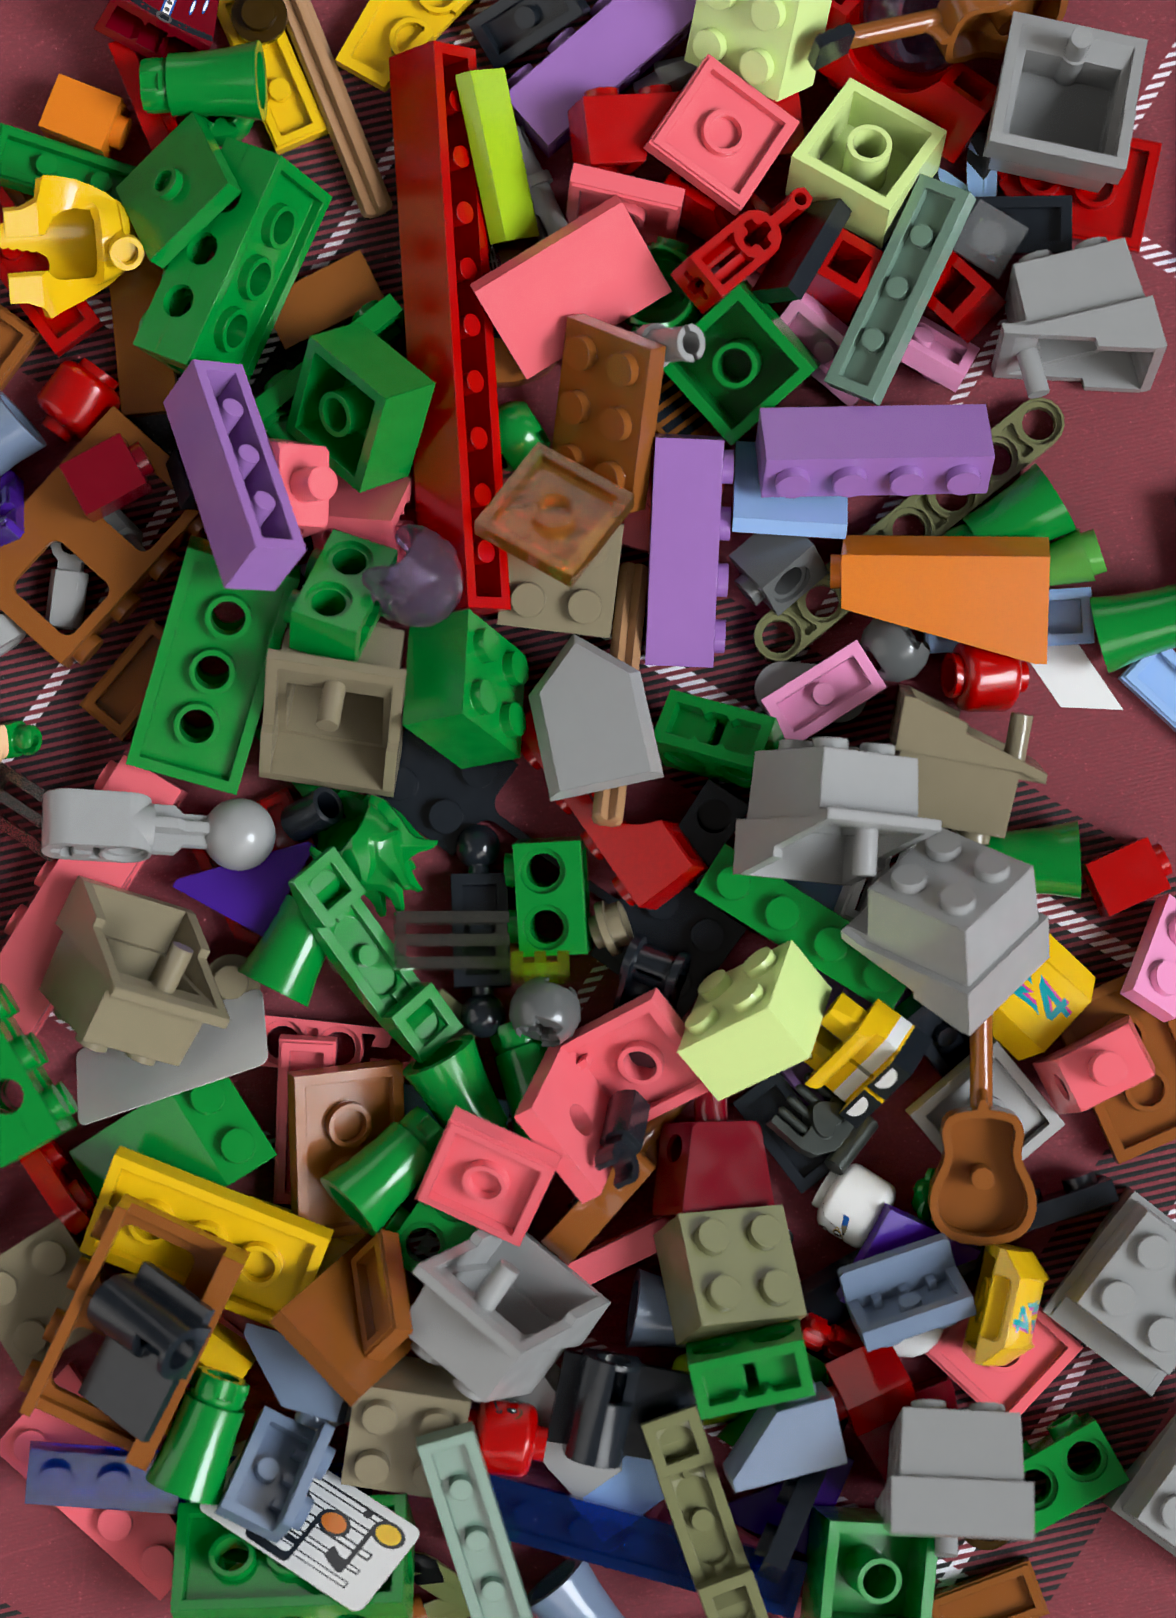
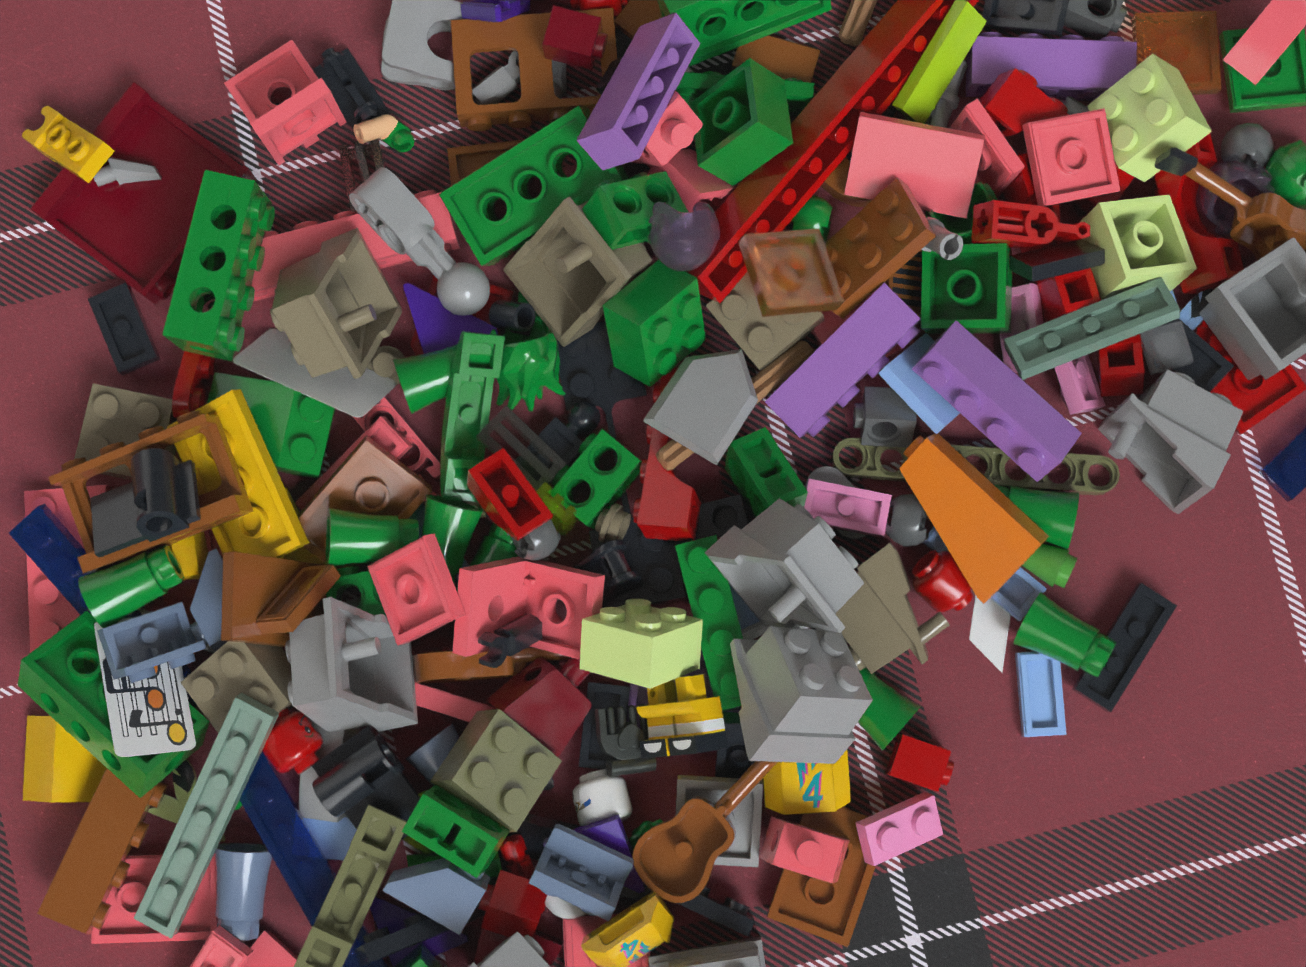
camera: 45 degrees right, 5 degrees down
(489, 1000) = (507, 495): none -> red slope

